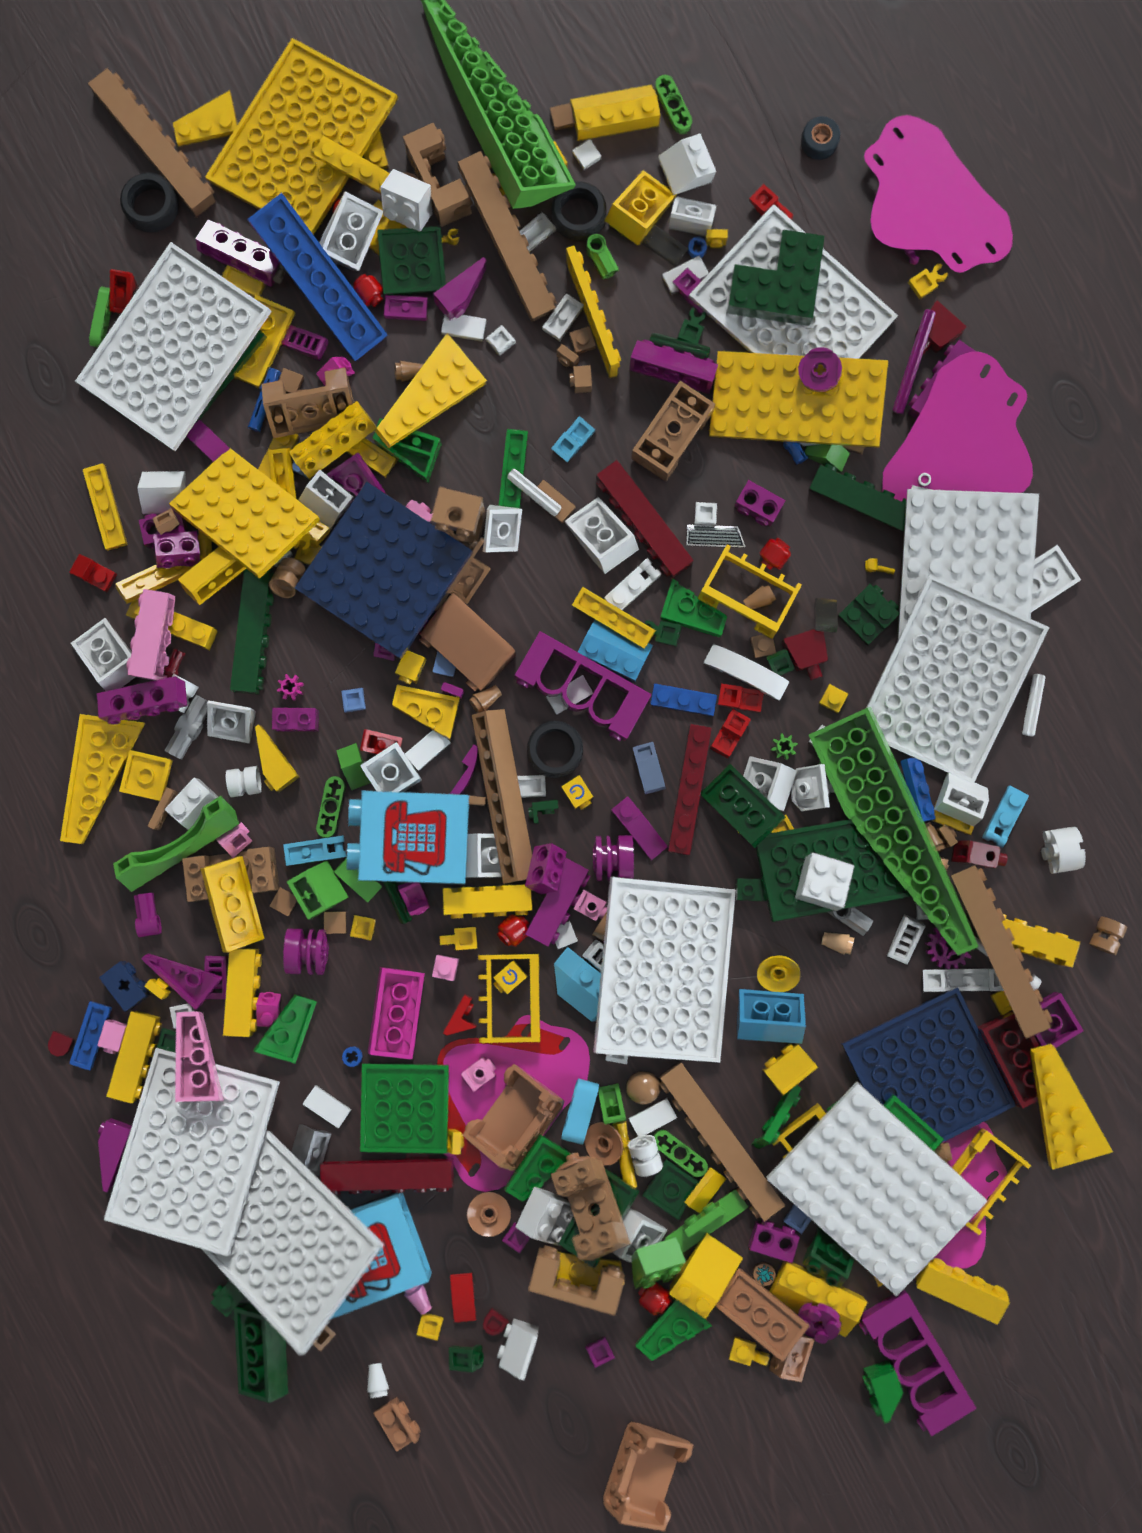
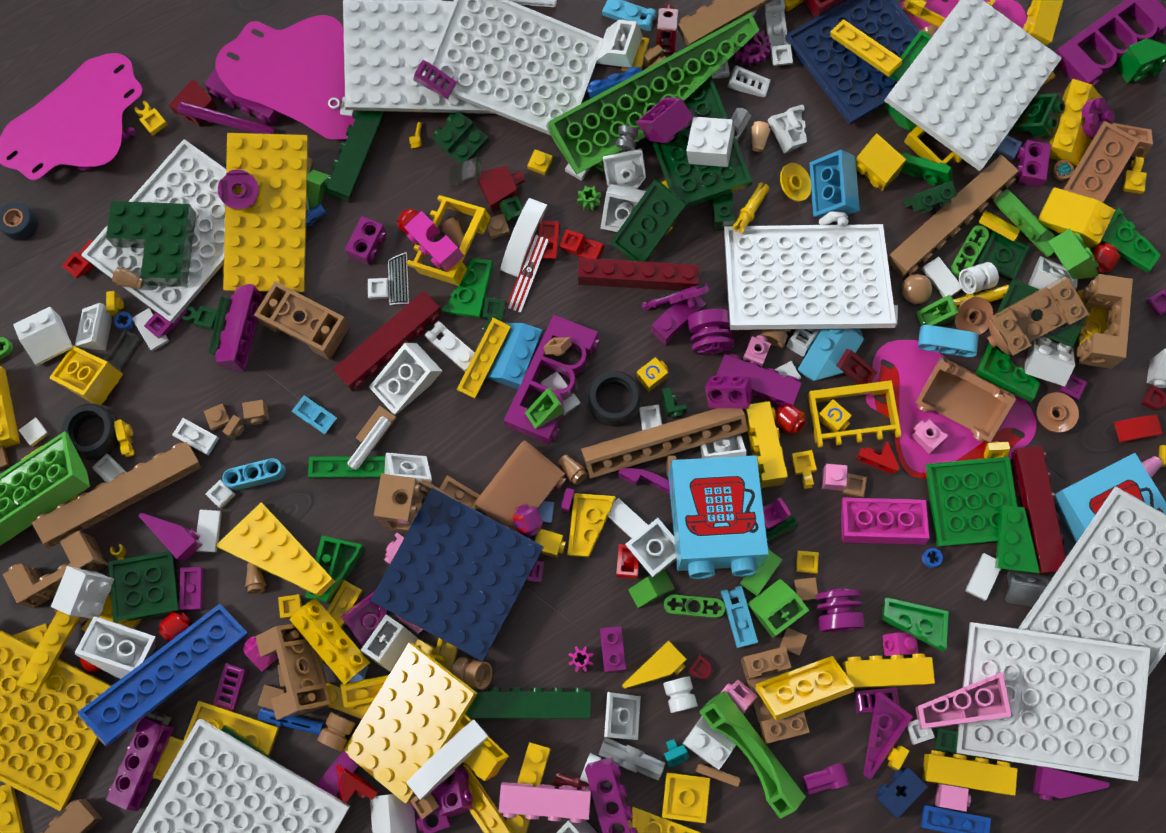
camera: 90 degrees left, 10 degrees down
(186, 770) = (675, 754): none -> teal tile
(196, 454) = (350, 783): none -> red slope
(200, 544) = (448, 758): none -> white slope
(245, 441) = (337, 730): none -> medium nougat wheel
(269, 806) = (700, 668): none -> dark red tile
(353, 700) = (586, 596): medium blue tile -> none
(356, 1142) = (1014, 542): none -> green wing
(377, 404) = (289, 605): none -> yellow plate
(431, 645) = (527, 520): none -> magenta head
(437, 988) = (855, 485): none -> medium nougat tile
(513, 365) = (244, 472): none -> medium azure beam
(543, 672) = (544, 409): none -> bright green slope
(558, 1007) = (856, 368): none -> dark red plate
(560, 246) = (124, 434): none -> yellow plate
(594, 316) = (190, 406): yellow plate -> none
(602, 258) = (136, 406): bright green piece -> none
(614, 694) = (557, 346): none -> medium nougat plate
(649, 768) = (621, 311): sand blue slope -> none
(658, 840) = (677, 296): none -> magenta piece
(683, 700) = (554, 289): blue plate -> none
(705, 672) = (527, 273): none -> sticker
(733, 1008) = (832, 216): none -> white arm
(739, 250) = (127, 278): none -> medium nougat cone
(741, 1118) = (938, 195): none -> dark green plate
(746, 915) = (748, 212): none -> yellow pin
(756, 562) = (443, 252): none -> dark pink arch
(841, 792) = (627, 137): none -> flat silver wheel
(845, 977) = (789, 128): none -> white slope
(855, 835) = (665, 120): none -> magenta brick
(927, 1073) = (866, 48): none -> yellow plate
(931, 569) = (432, 70): none -> magenta slope

